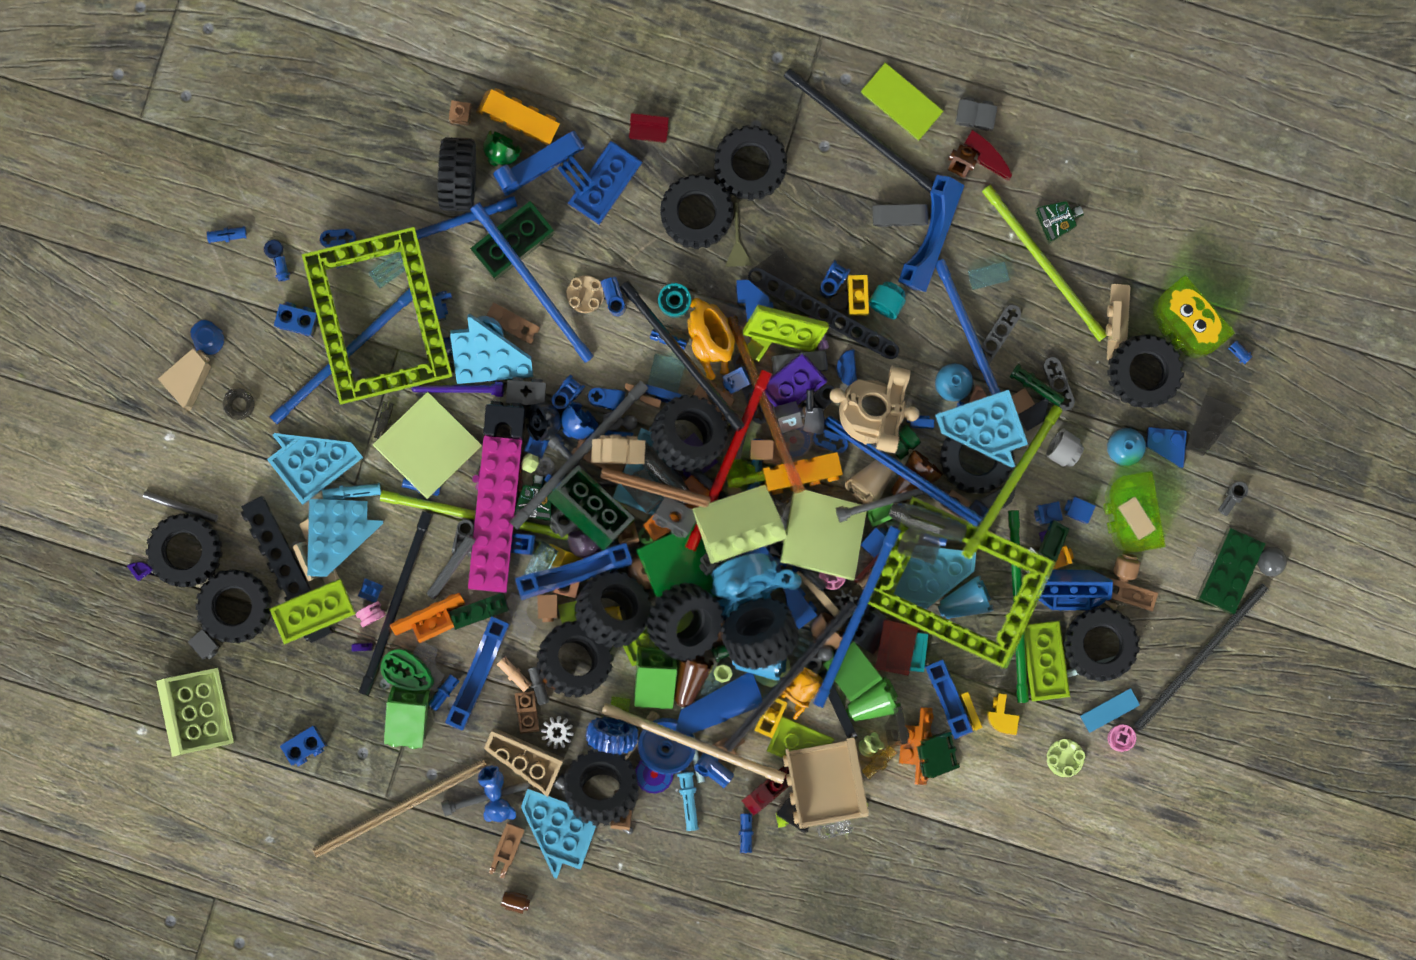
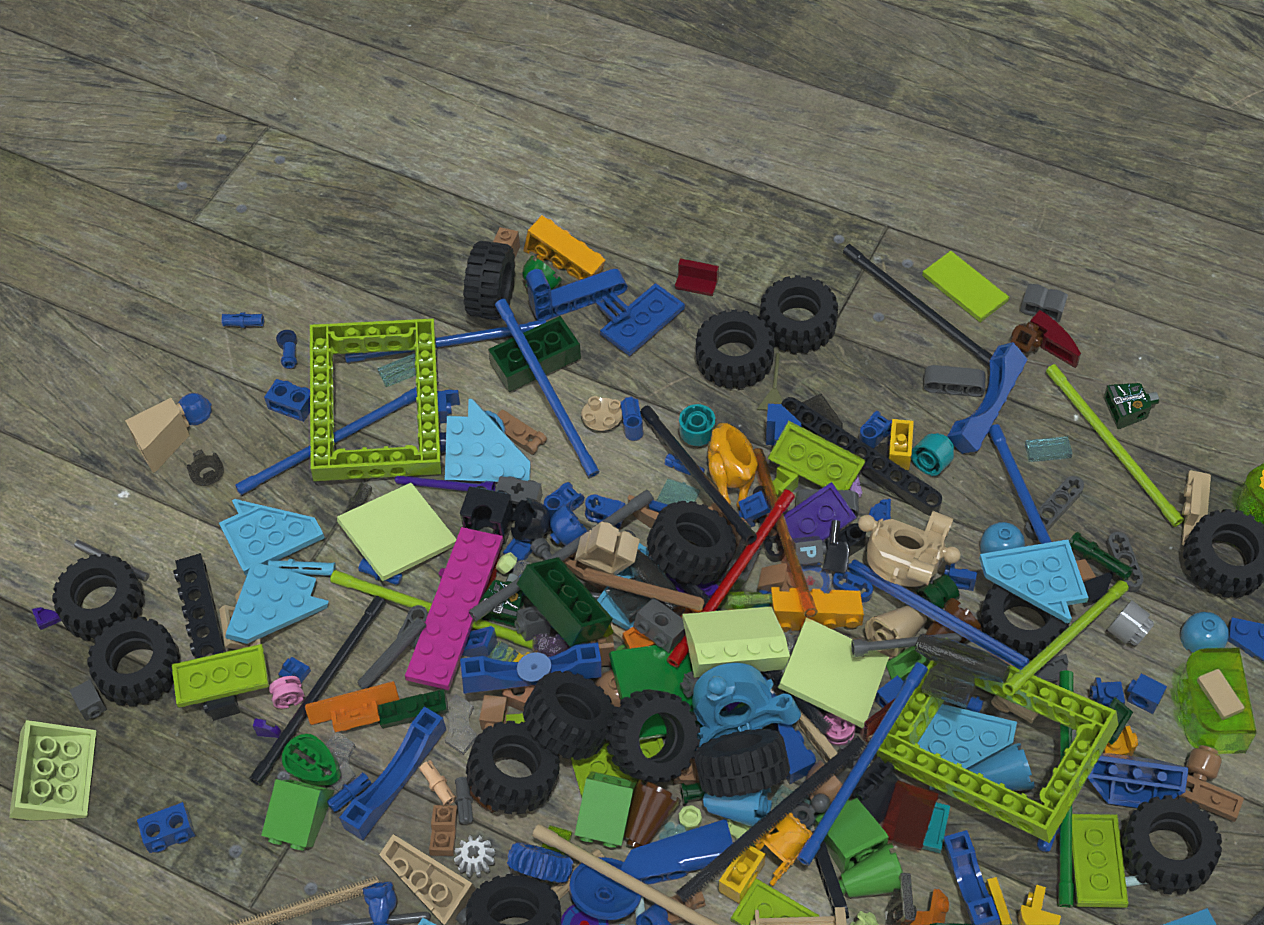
camera: 15 degrees right, 30 degrees down
(576, 571) = (533, 666): none -> medium blue piece

